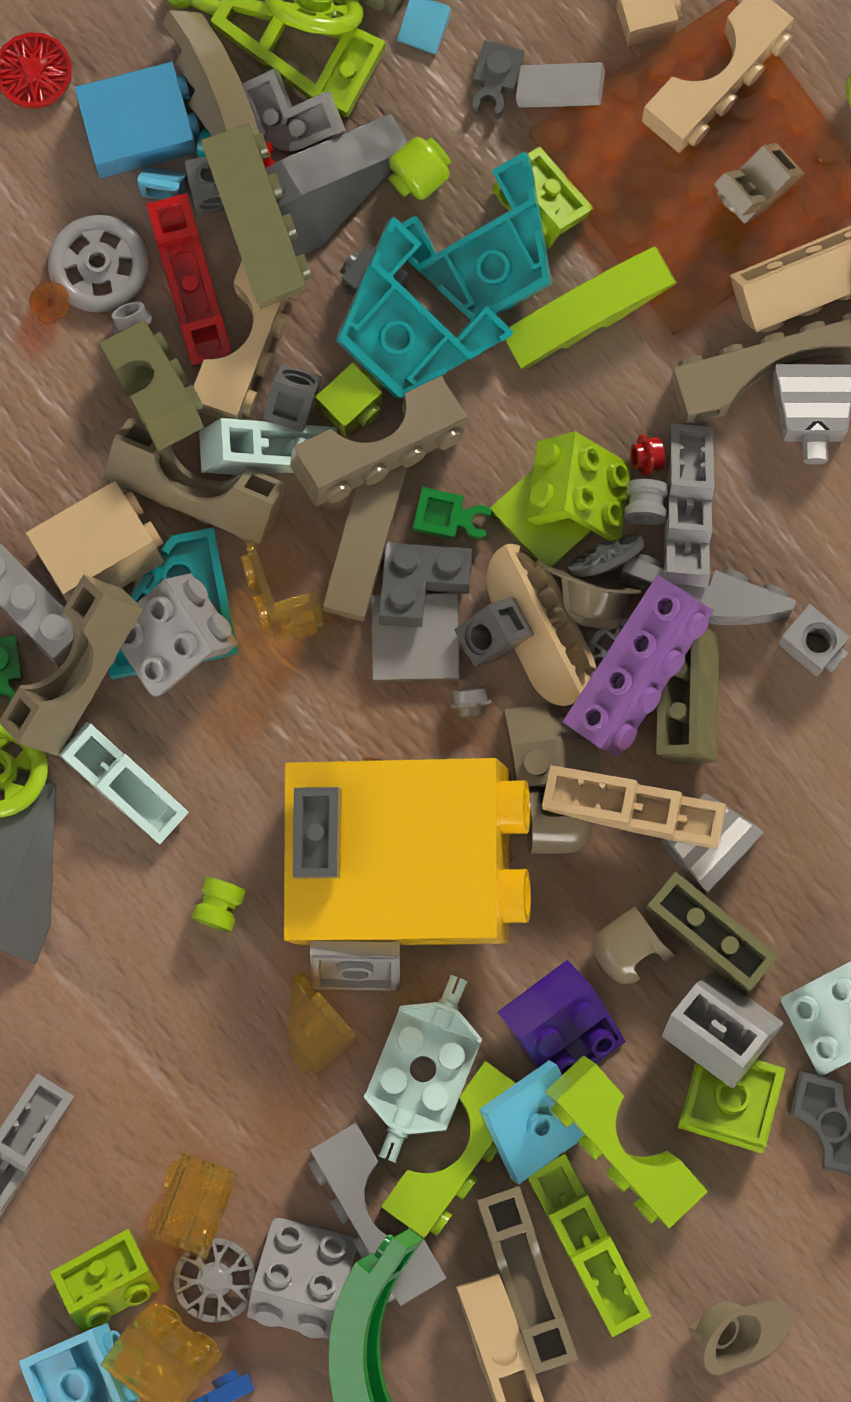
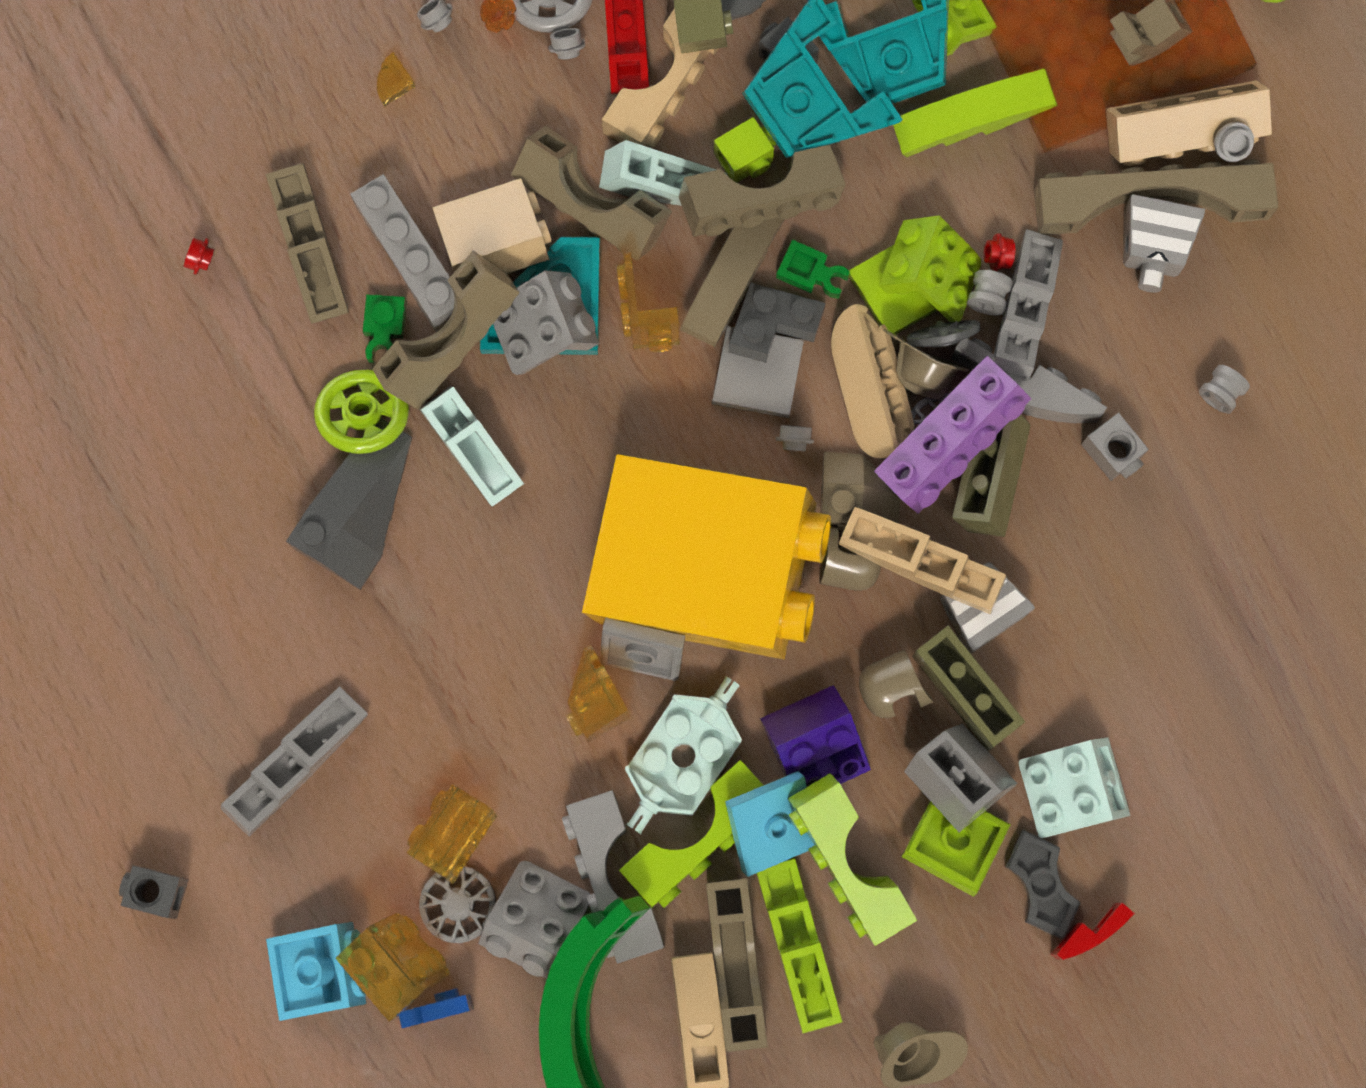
camera: 15 degrees right, 0 degrees up
(104, 1281) = (358, 884): lime bracket -> none
(163, 403) = (573, 100): olive arch -> none
(218, 904) = (532, 570): lime wheel -> none
(292, 398) = (693, 137): dark grey brick -> none
(317, 833) = (631, 521): dark grey plate -> none
(493, 632) = (829, 379): dark grey brick -> none

